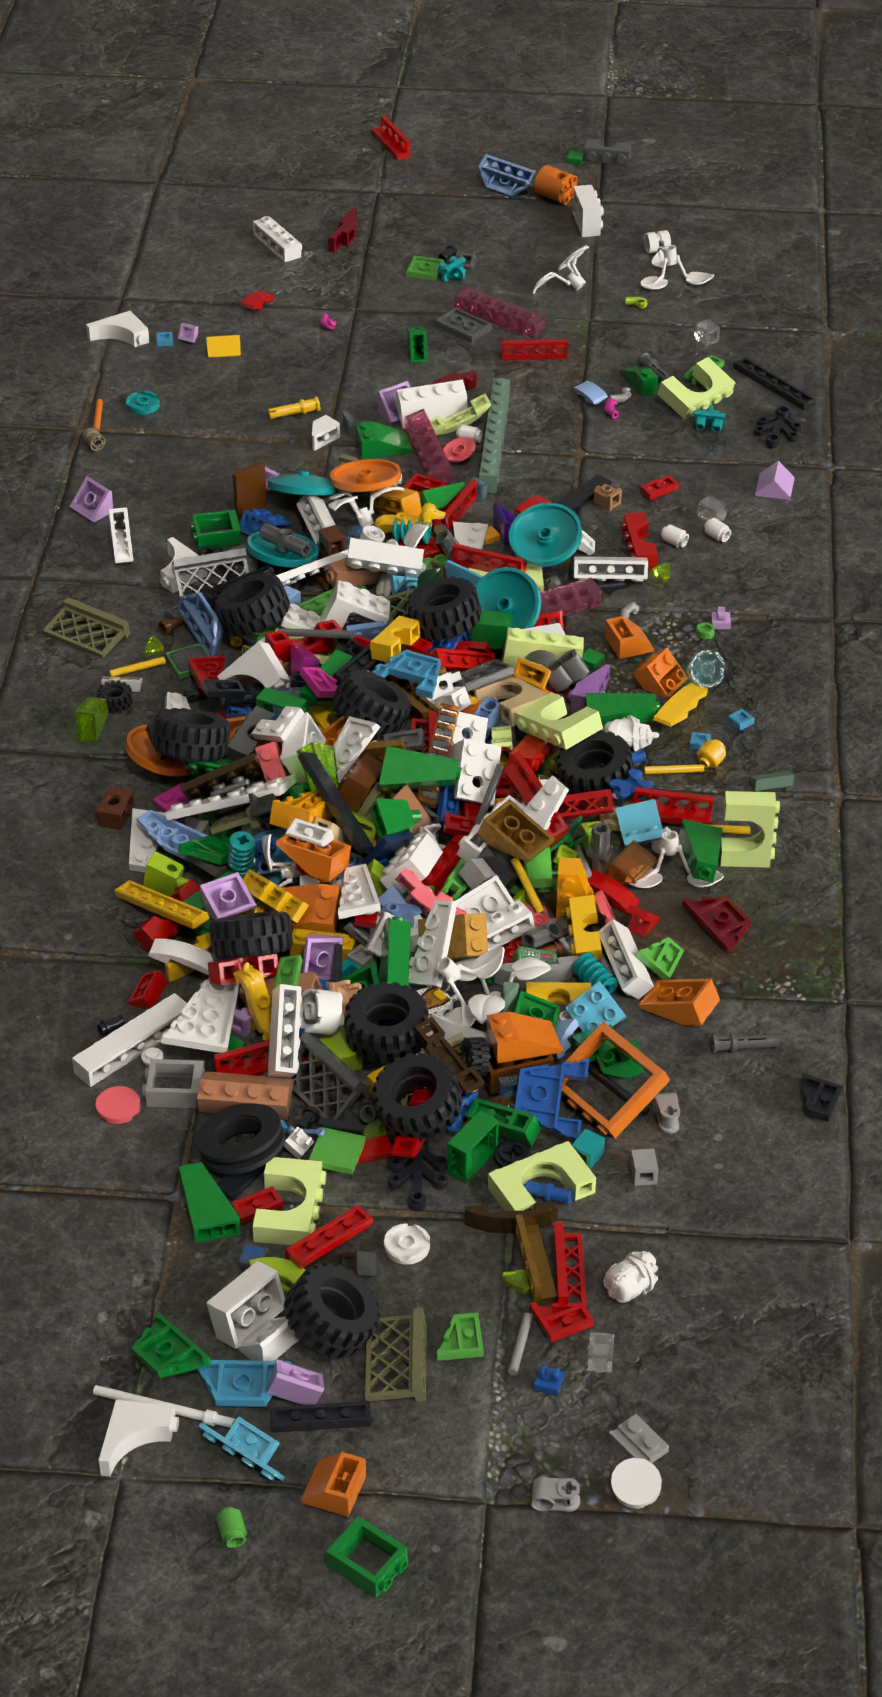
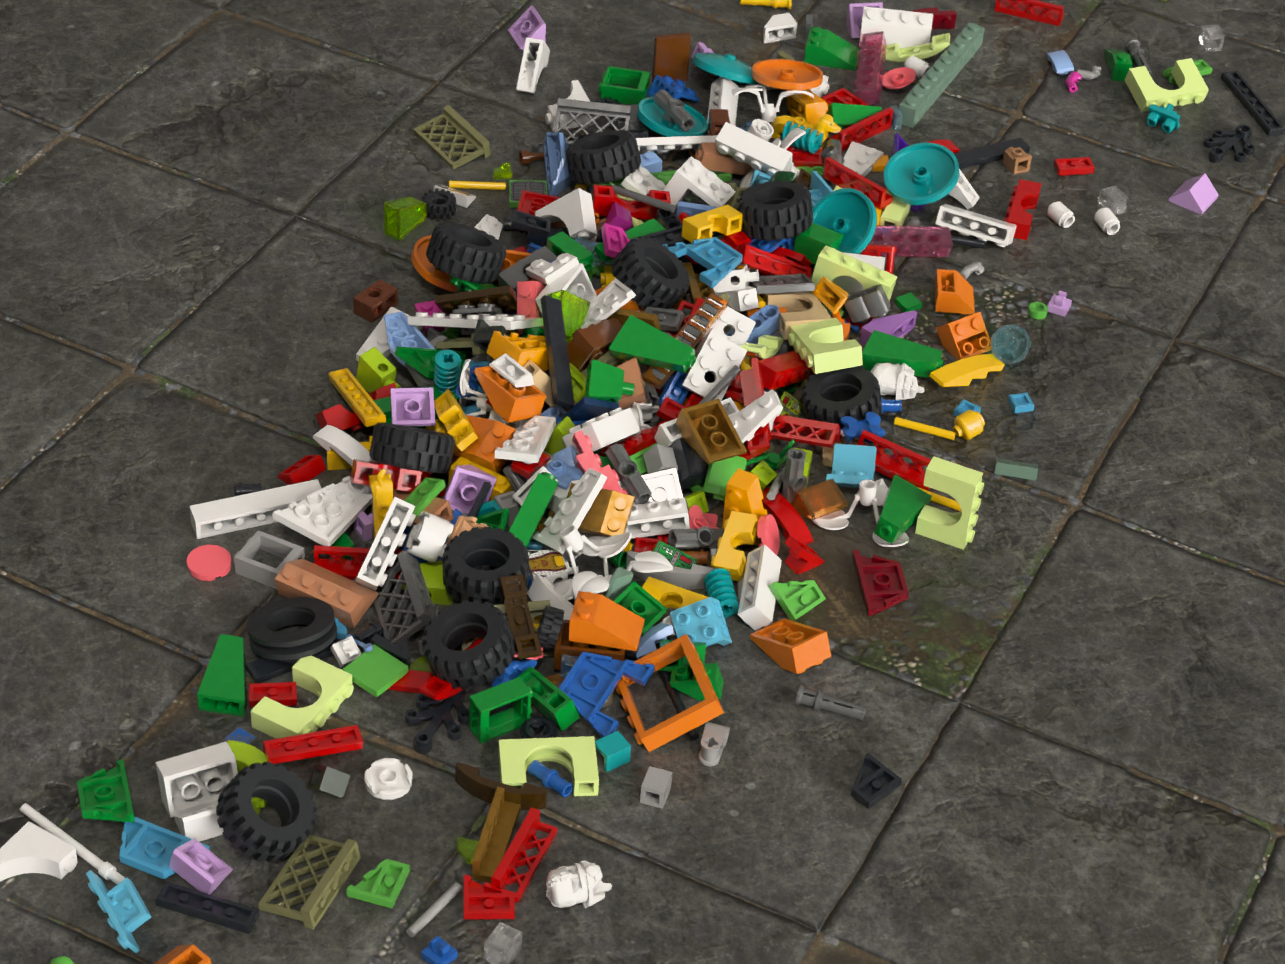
camera: 20 degrees right, 0 degrees up
(151, 1053) = (267, 527): white plate -> none
(448, 885) = (634, 482): none -> dark grey piece
(527, 885) = (704, 492): yellow bar -> none
(662, 572) = (1029, 244): clear neon green tile -> none

